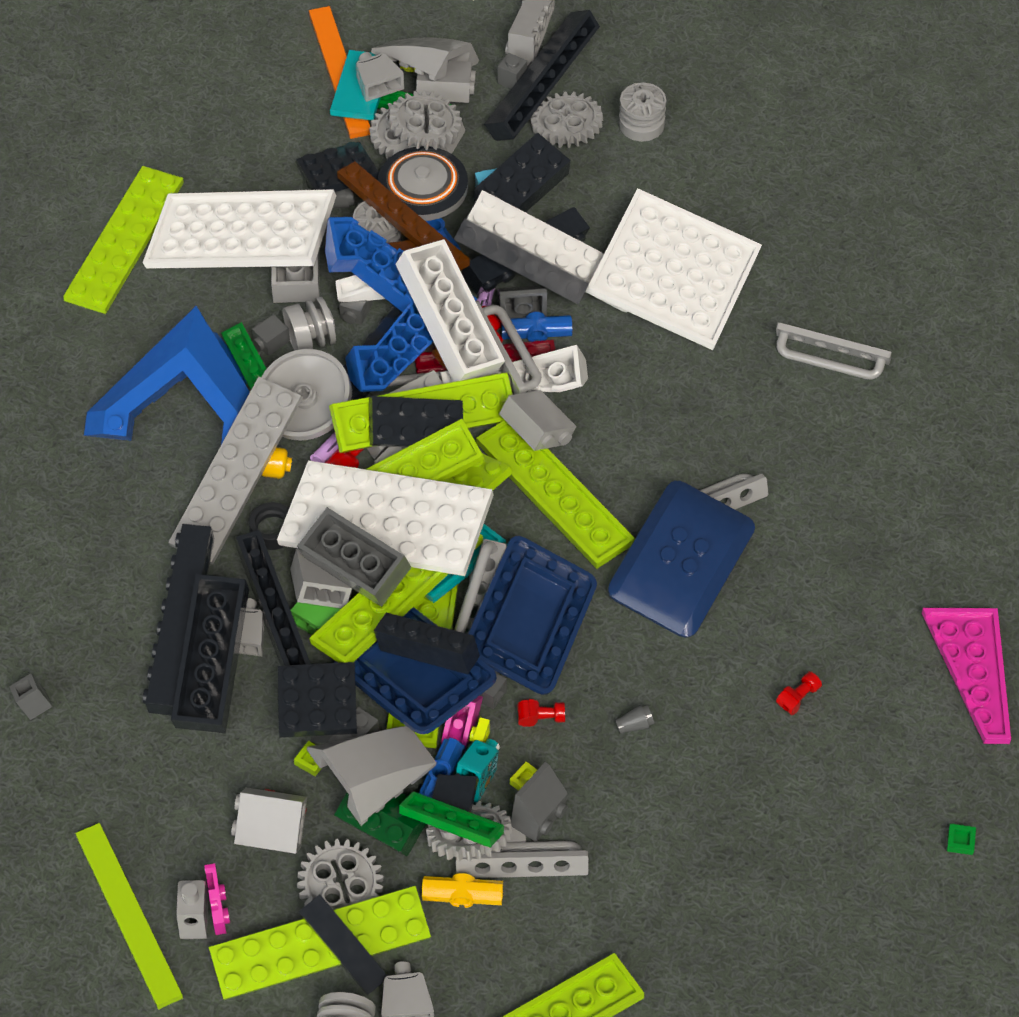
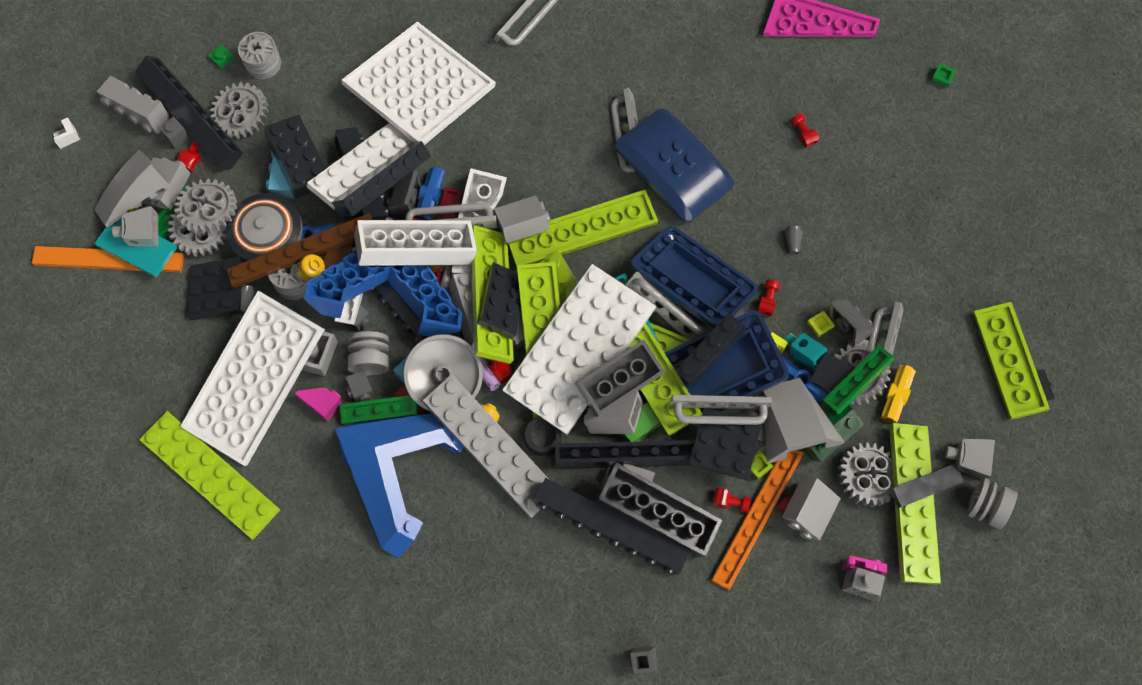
camera: 70 degrees left, 15 degrees up
(129, 916) = (850, 634): lime tile -> none
(239, 305) = (321, 401): none -> dark pink slope
(243, 775) = (755, 520): none -> orange tile
(256, 732) = (723, 499): none -> red leg
(346, 625) = (724, 402): none -> light grey piece
(384, 226) = (310, 267): none -> yellow head
(487, 97) = (190, 157): none -> red piece
(628, 79) = (221, 56): none -> green plate

